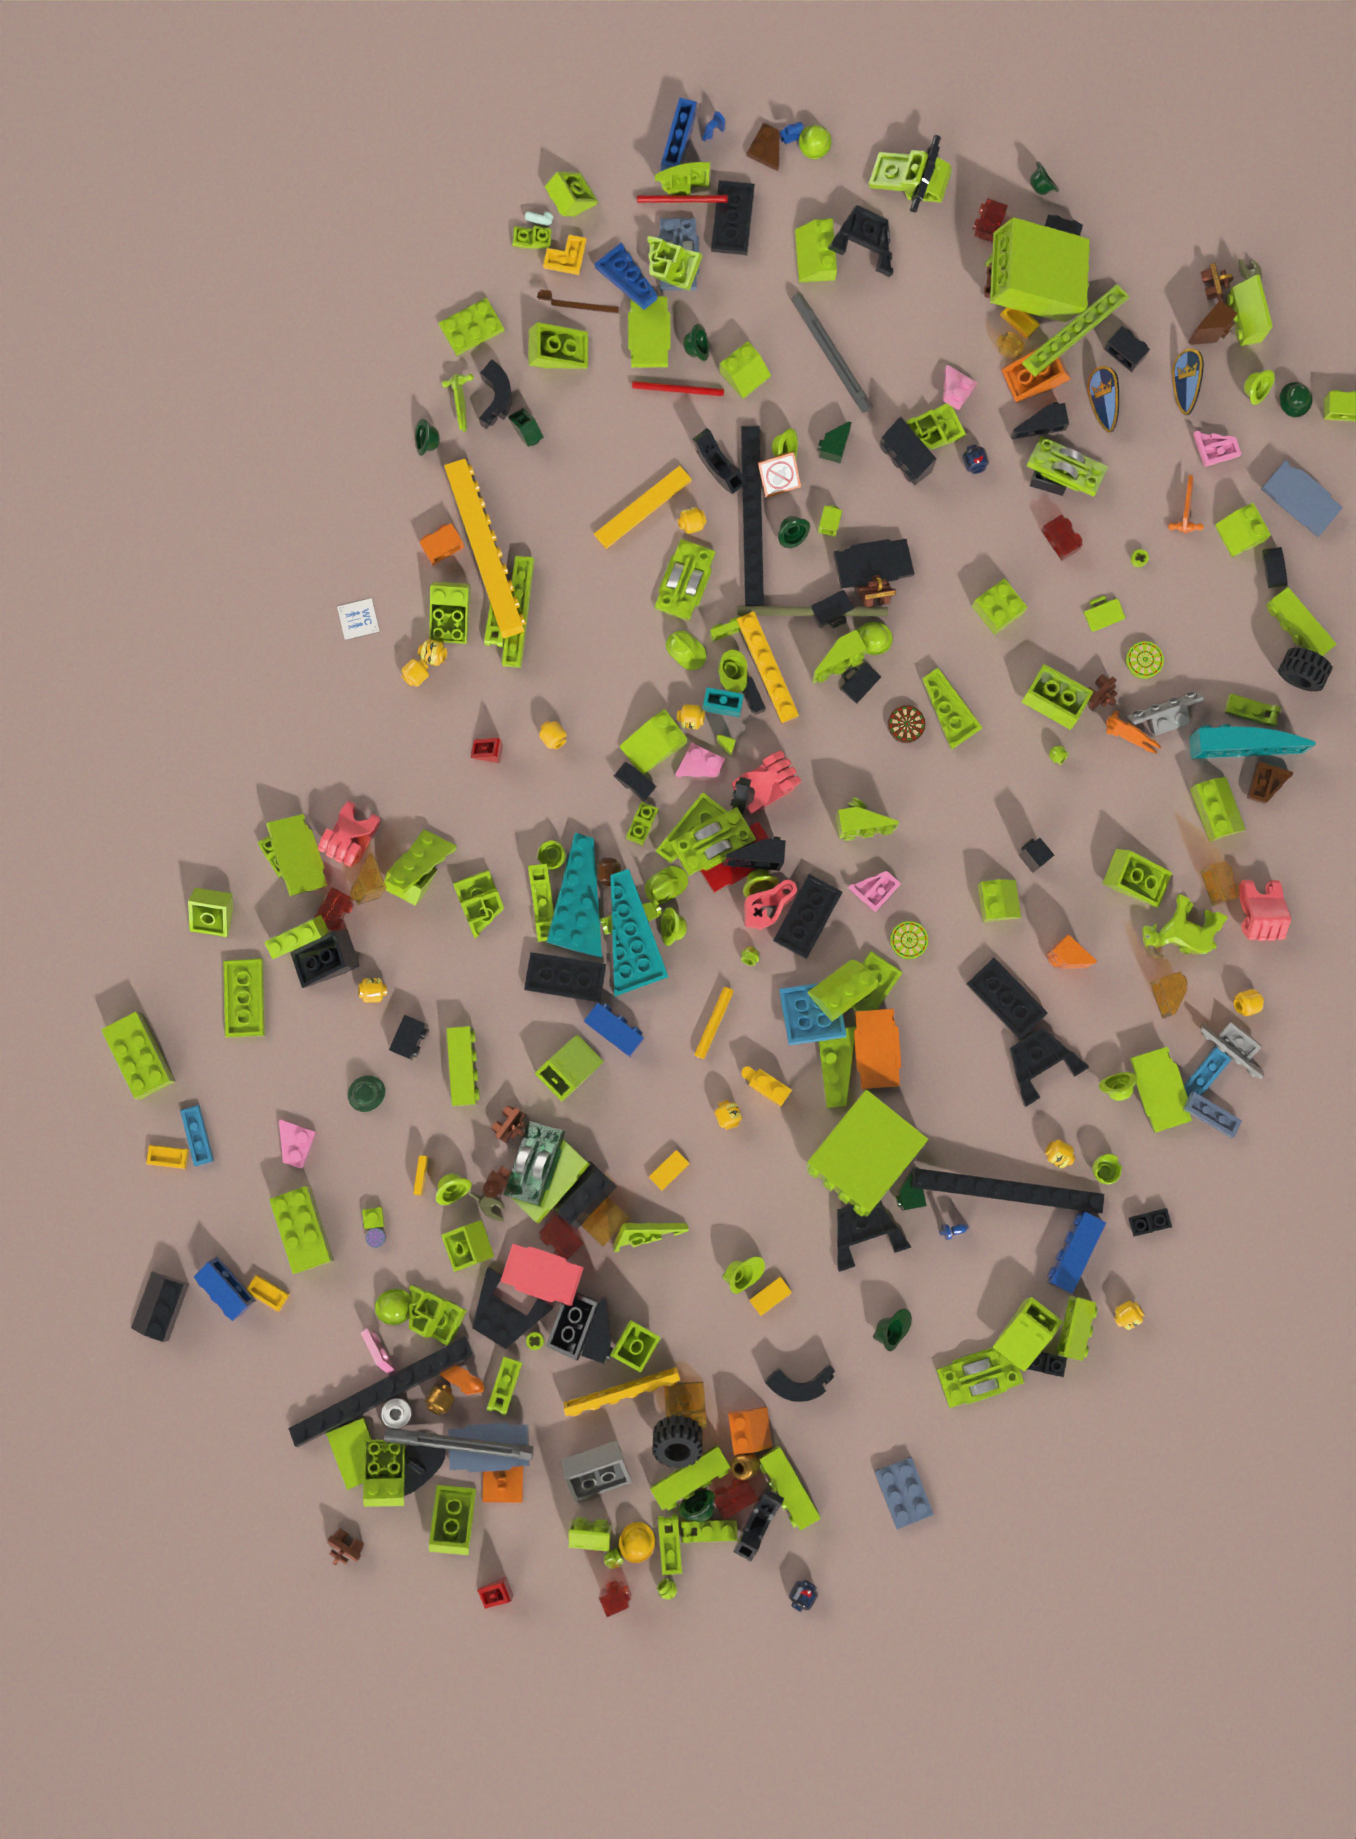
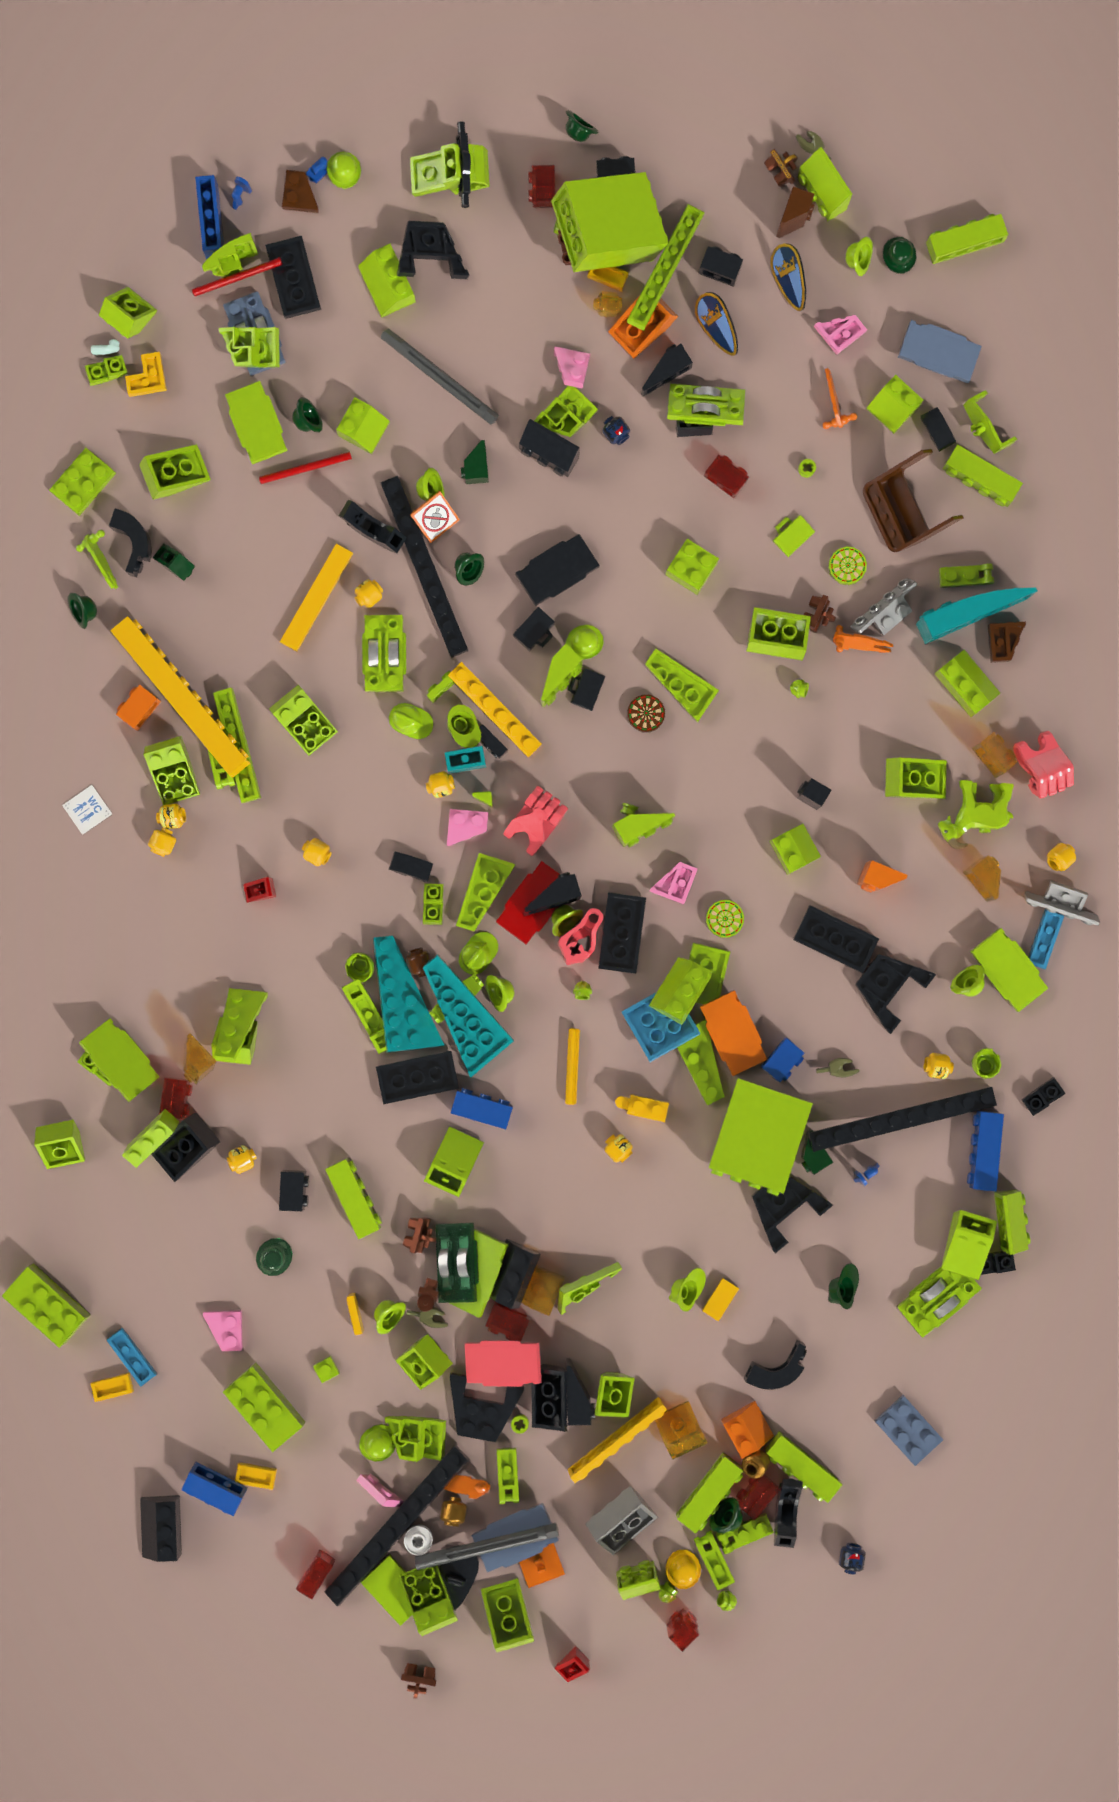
camera: 20 degrees left, 5 degrees up
(244, 998) = (124, 1212): lime tile -> none
(286, 1407) = (315, 1574): none -> clear red brick
(349, 836) = (161, 1023): coral piece -> none
(375, 1237) = (335, 1386): sand blue tile -> none
(478, 900) = (307, 1036): lime slope -> none
(546, 295) = (142, 424): reddish brown piece -> none
(587, 611) = (303, 720): none -> lime slope
(625, 275) = (212, 375): blue wing -> none
(653, 742) = (414, 823): lime slope -> none
(669, 1170) = (583, 1219): yellow tile -> none
(677, 1441) = (686, 1467): black tyre -> none
(712, 840) = (506, 897): lime piece -> none
(740, 794) = (515, 842): black piece -> none
(806, 611) = (511, 640): olive piece -> none
(830, 520) = (500, 543): lime brick -> none
(876, 589) = (569, 595): copper hips -> none
(914, 1092) = (783, 1060): none -> blue brick
(961, 1120) = (836, 1068): none -> olive hand
(1128, 1315) = (1054, 1190): yellow head -> none
(1210, 627) = (897, 509): none -> reddish brown windscreen
(1212, 1115) = (1065, 975): sand blue plate -> none
(1305, 669) = (1002, 519): black tyre -> none
(1318, 579) = (983, 425): none -> lime piece

